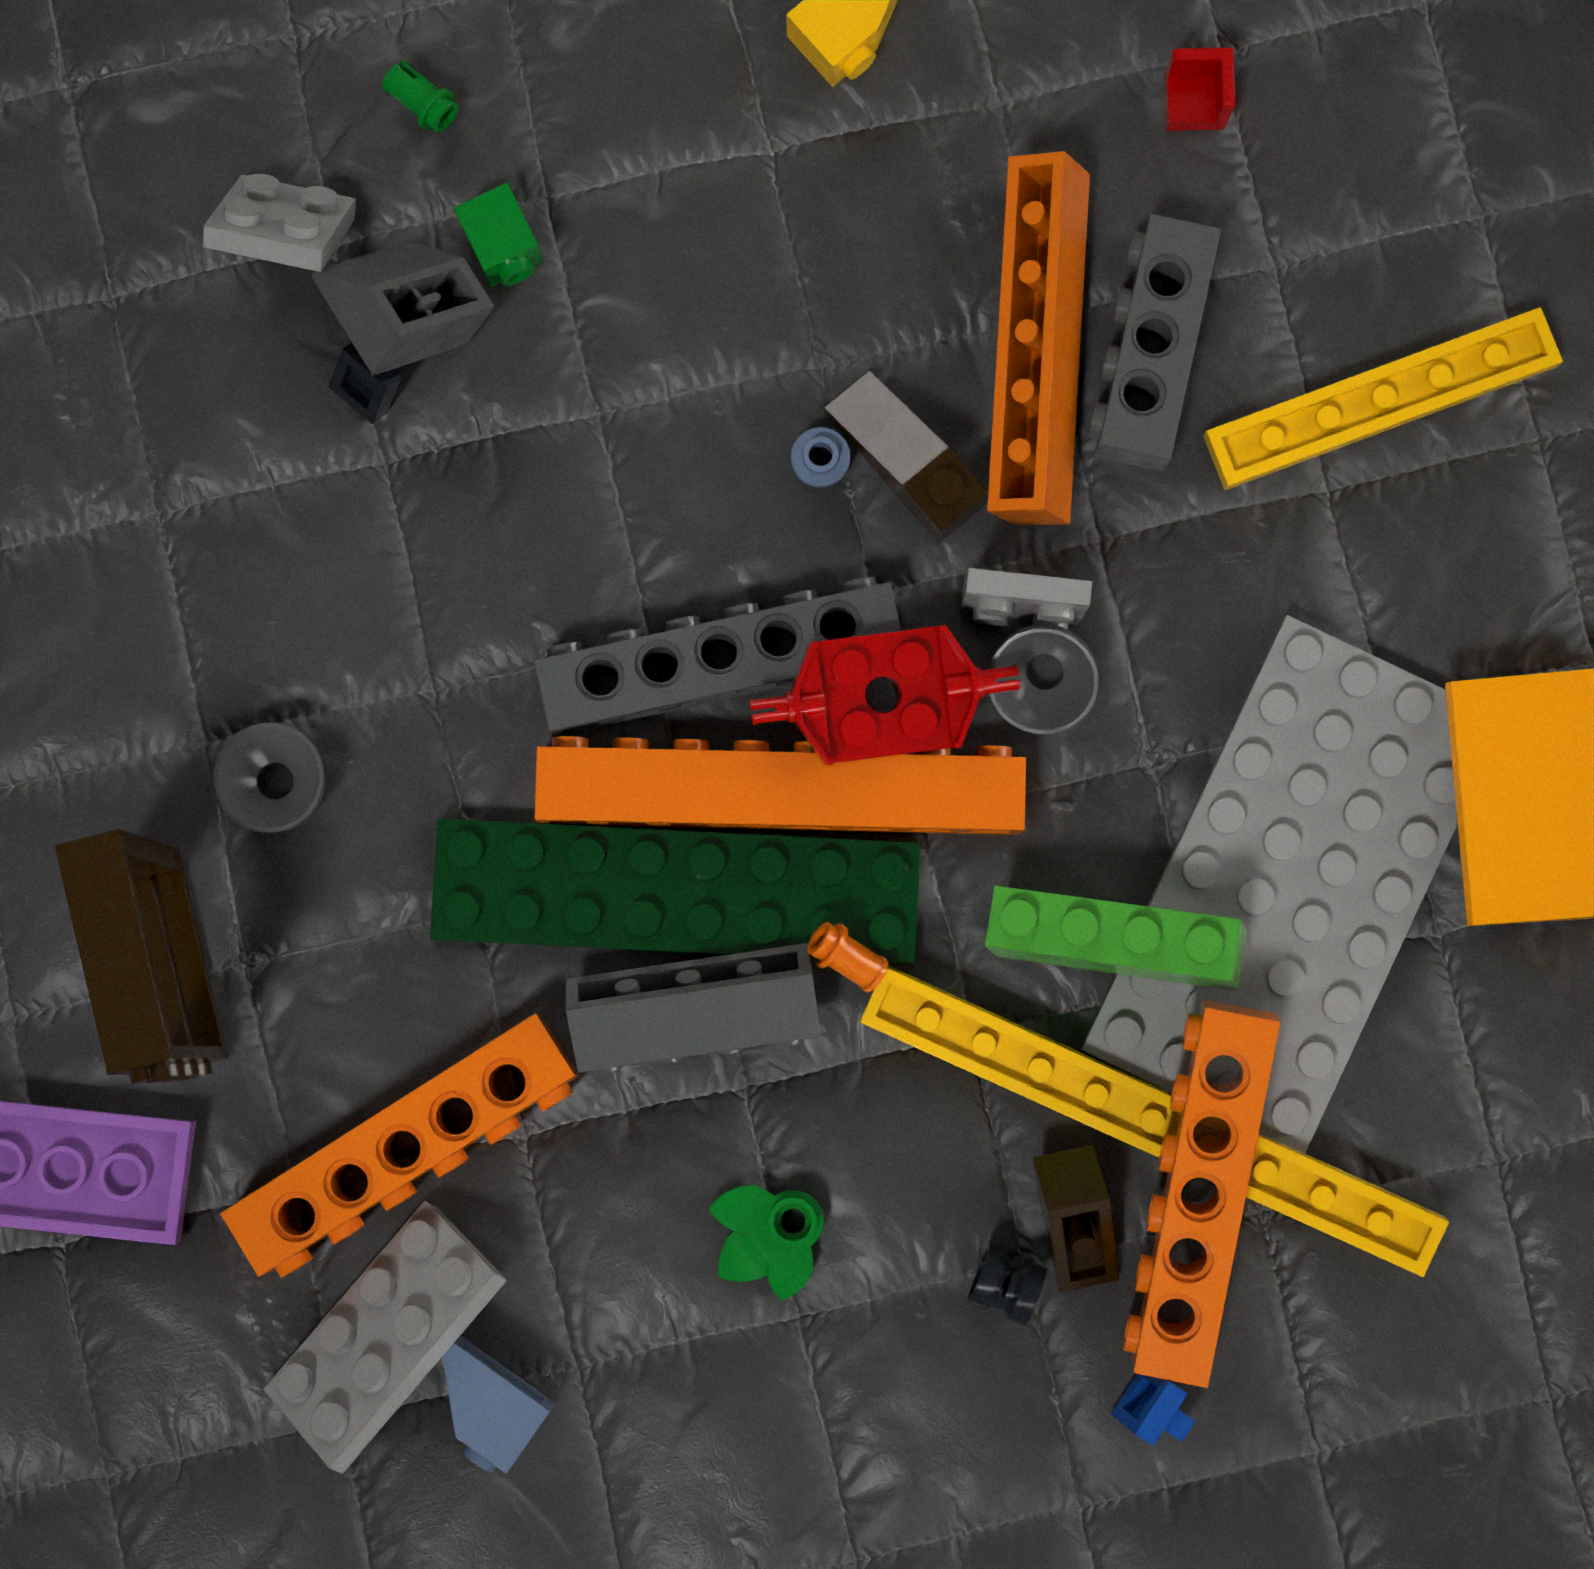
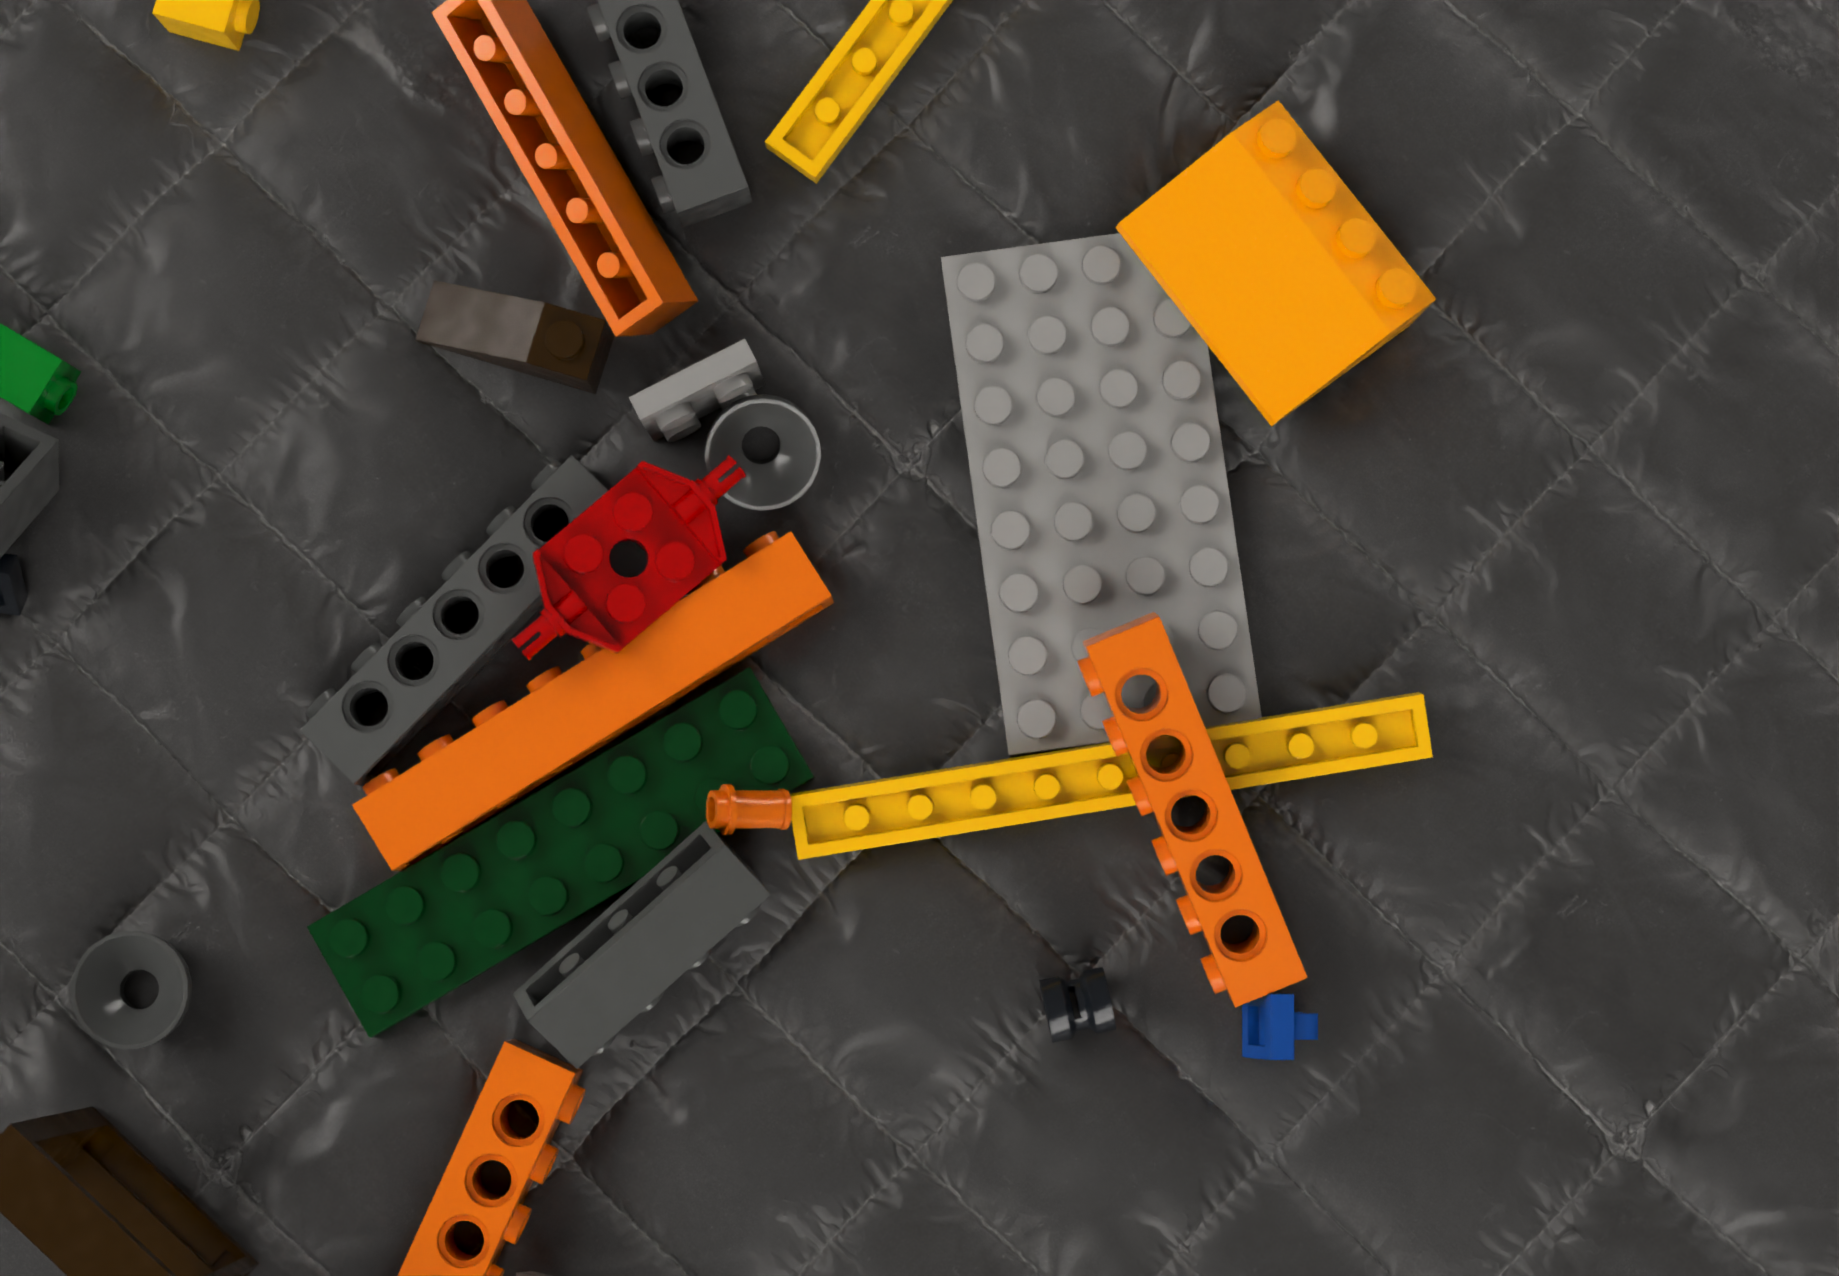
camera: 30 degrees left, 0 degrees up
(759, 1241) = (837, 1110): green plate -> none
(824, 475) = (454, 398): sand blue plate -> none
(1076, 1218) = (1100, 905): dark brown slope -> none
(1116, 938) = (972, 637): bright green brick -> none

